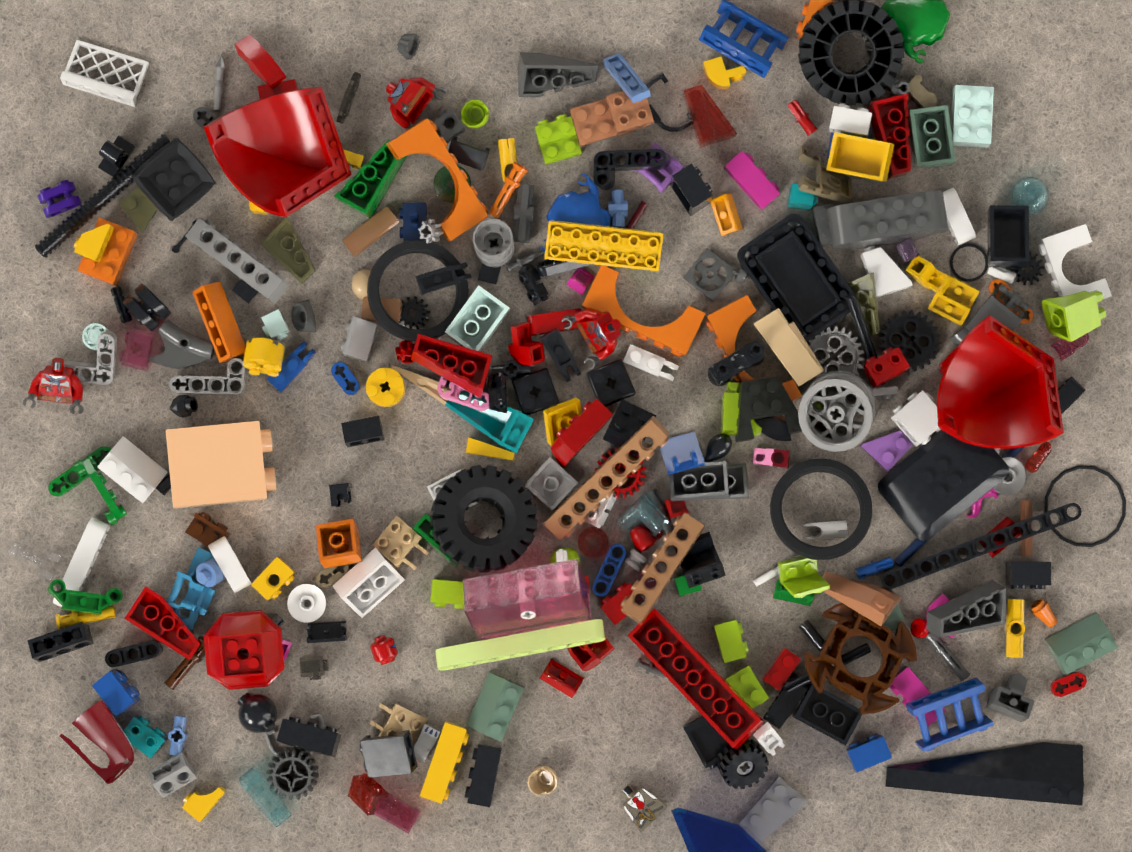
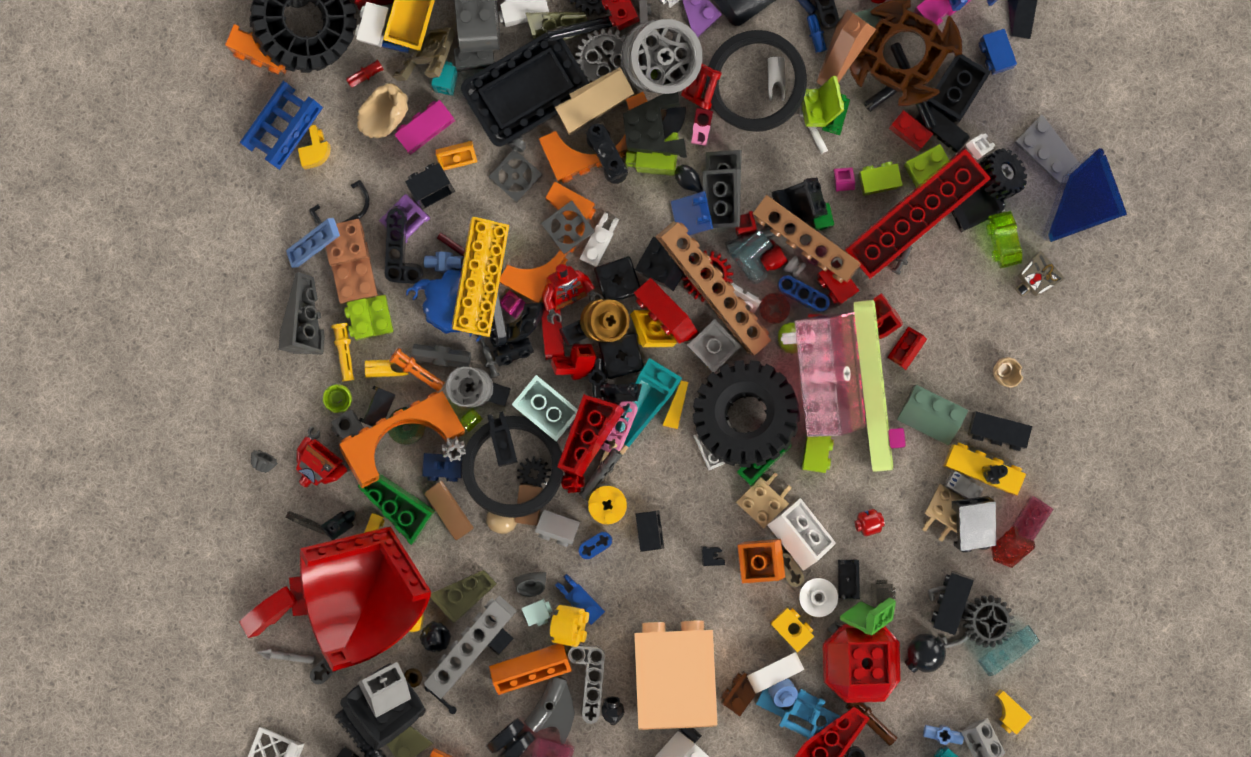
camera: 85 degrees left, 0 degrees up
(188, 179) = (385, 689): none -> light grey slope
(201, 204) = (413, 683): none -> dark brown cone
(245, 226) = (435, 637): none -> black piece
(287, 654) = (869, 618): none -> bright green bracket
(350, 124) = (339, 524): none -> black hinge
(418, 380) = (605, 467): none -> dark grey pin
(438, 770) = (994, 473): none -> black hinge
(462, 247) = (470, 419): none -> clear neon green brick
(469, 672) = (897, 438): none -> dark pink slope
(531, 115) = (342, 342): none -> yellow pin
(561, 294) = (525, 323): none -> black tile
(567, 372) = (604, 320): none -> pearl gold wheel
(657, 350) = (574, 223): none -> dark grey piece
(677, 770) = (1004, 239): none -> clear neon green brick
(706, 117) = (358, 168): clear red wedge -> none
(728, 605) = (844, 179): none -> dark pink slope
(764, 137) = (382, 111): none -> tan hair
(806, 448) = (695, 89): none -> red plate

